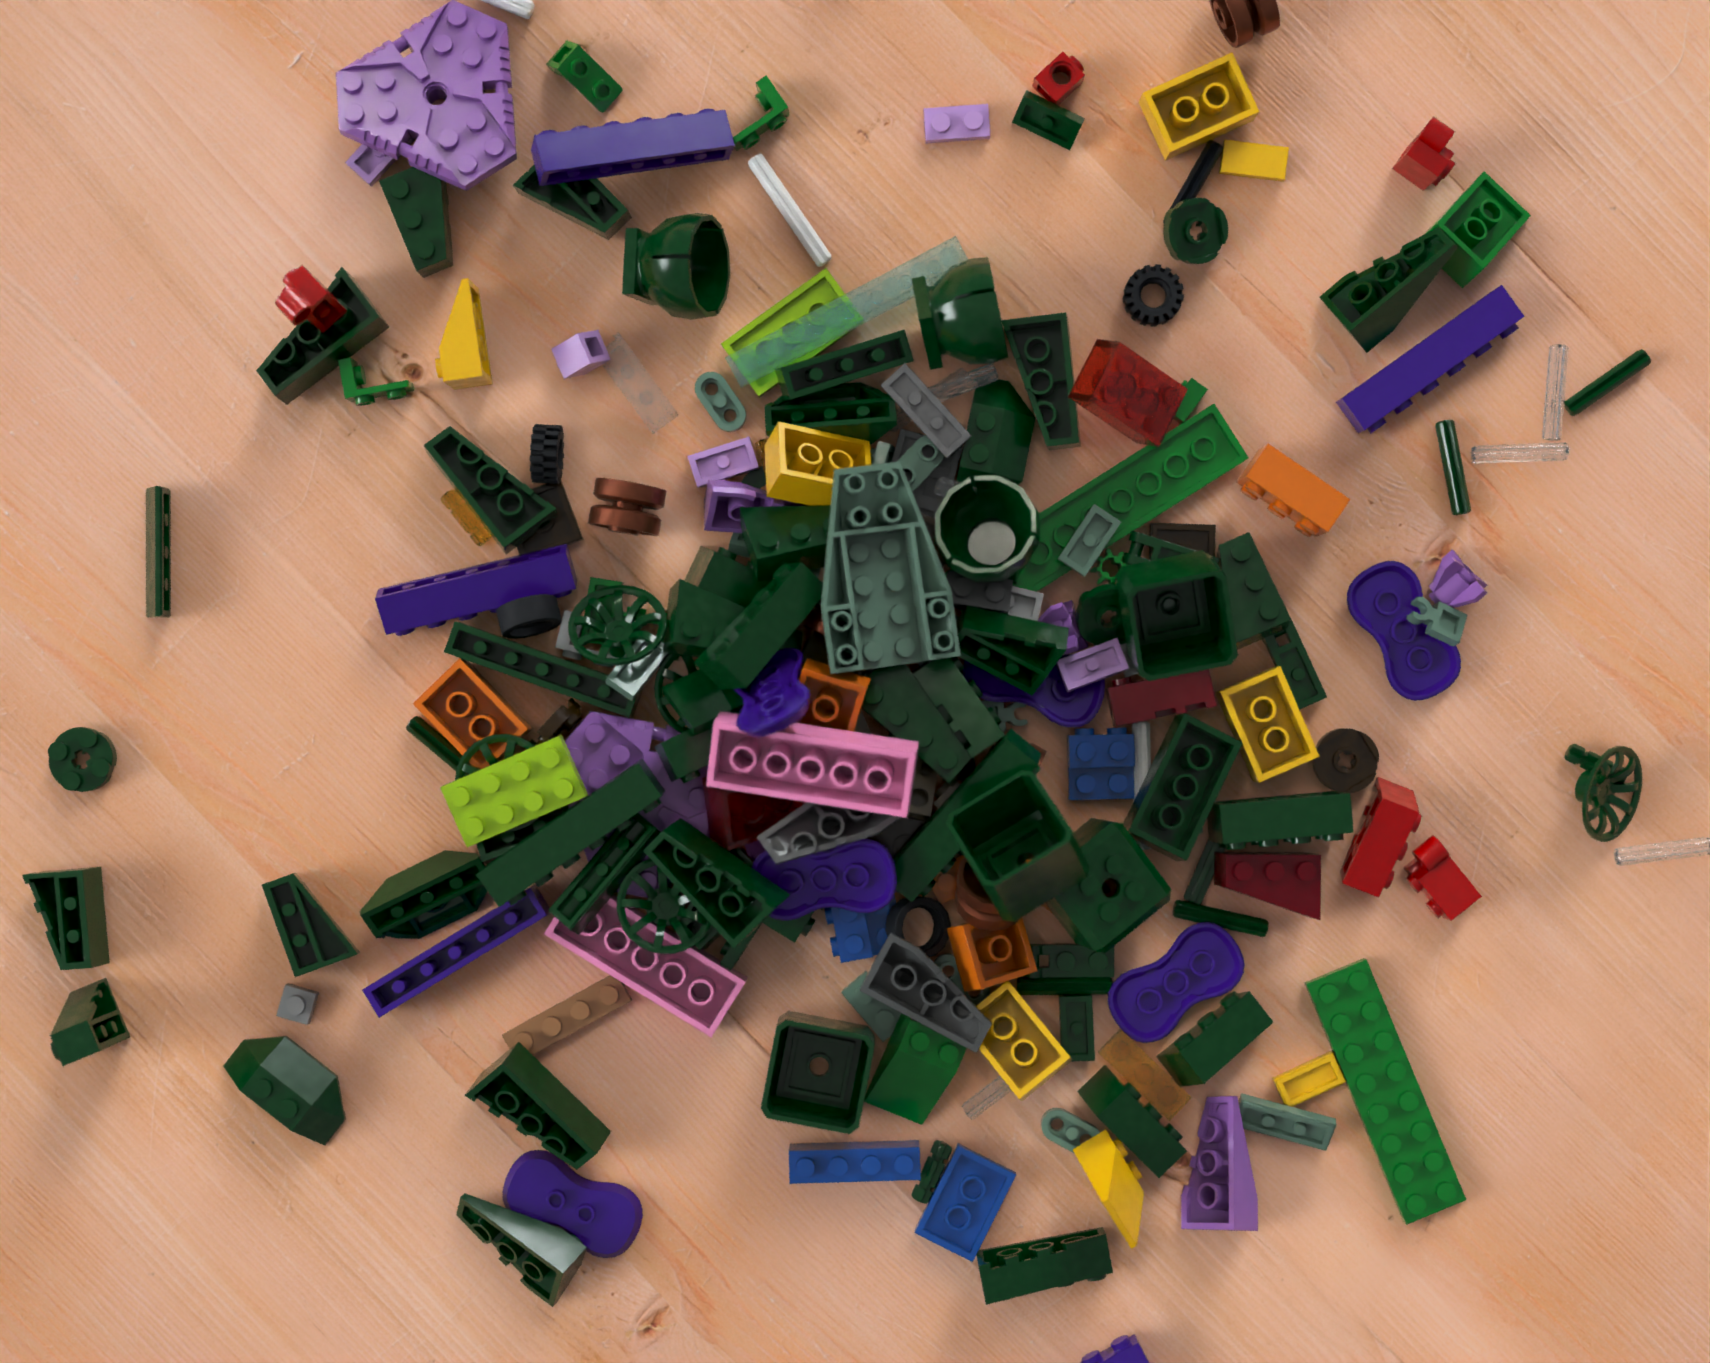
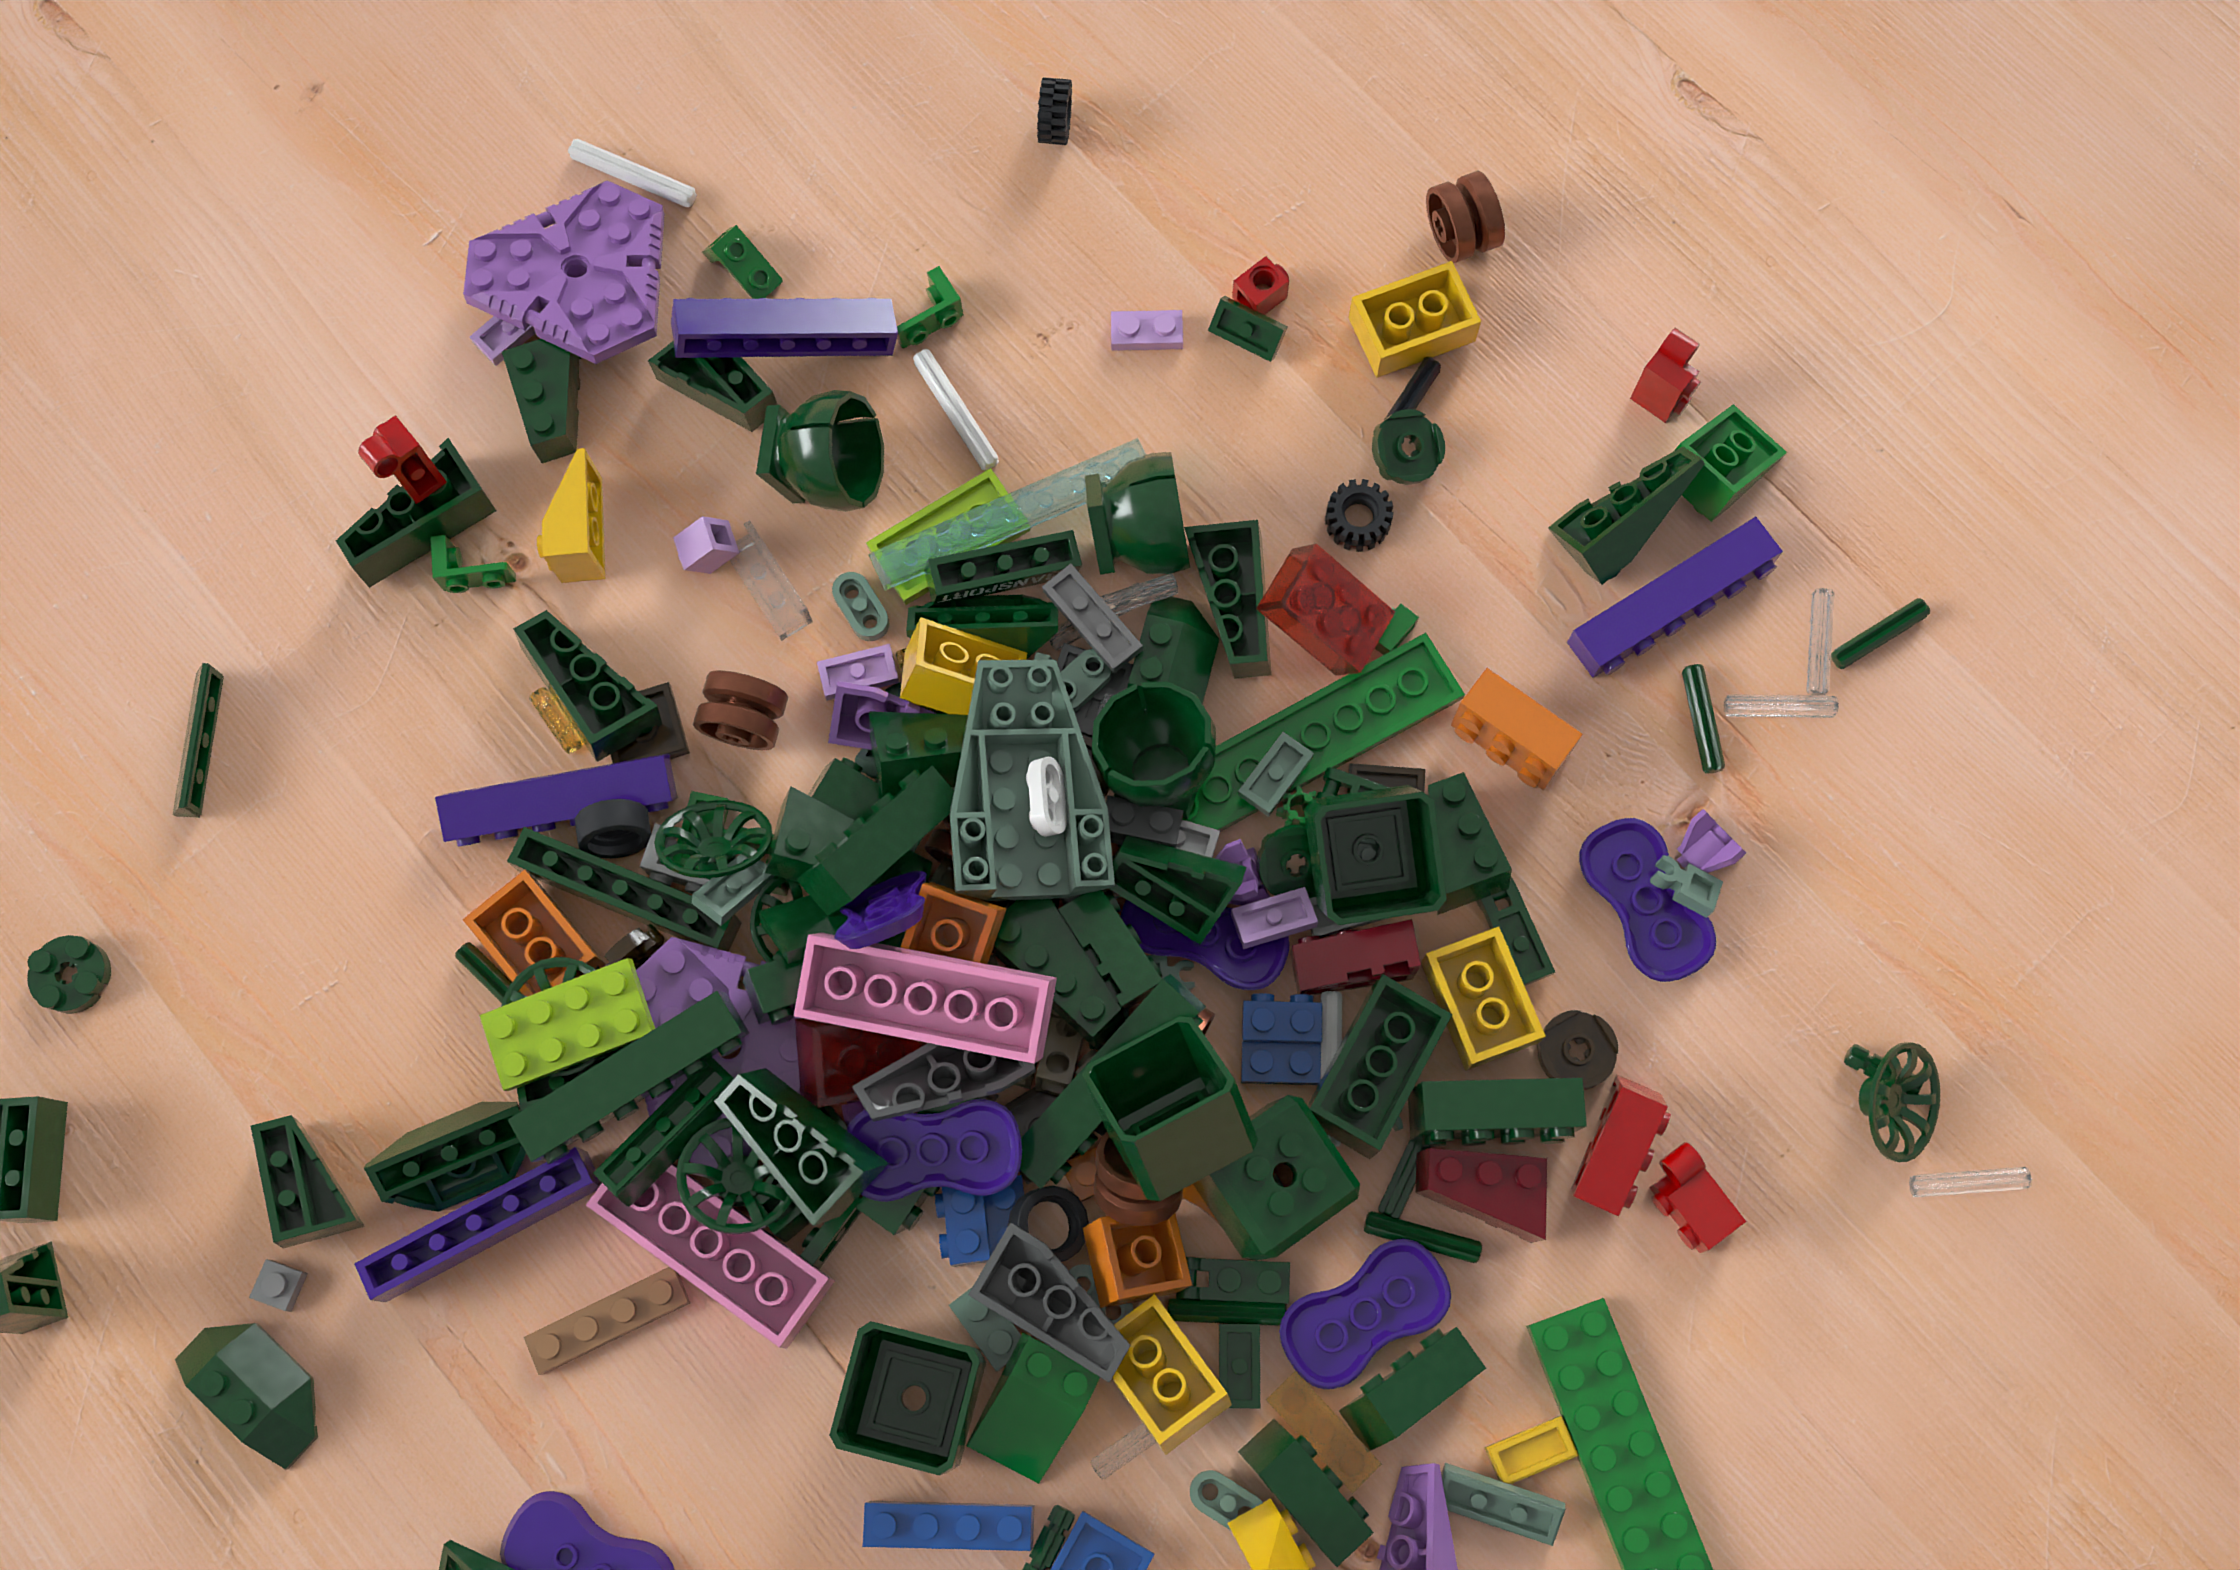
camera: 10 degrees right, 15 degrees down
(540, 1106) = (558, 1428): dark green wedge -> none
(547, 453) = (655, 649): black tyre -> none
(900, 584) = (1047, 797): none -> white plate
(1254, 160) = (1475, 381): yellow tile -> none

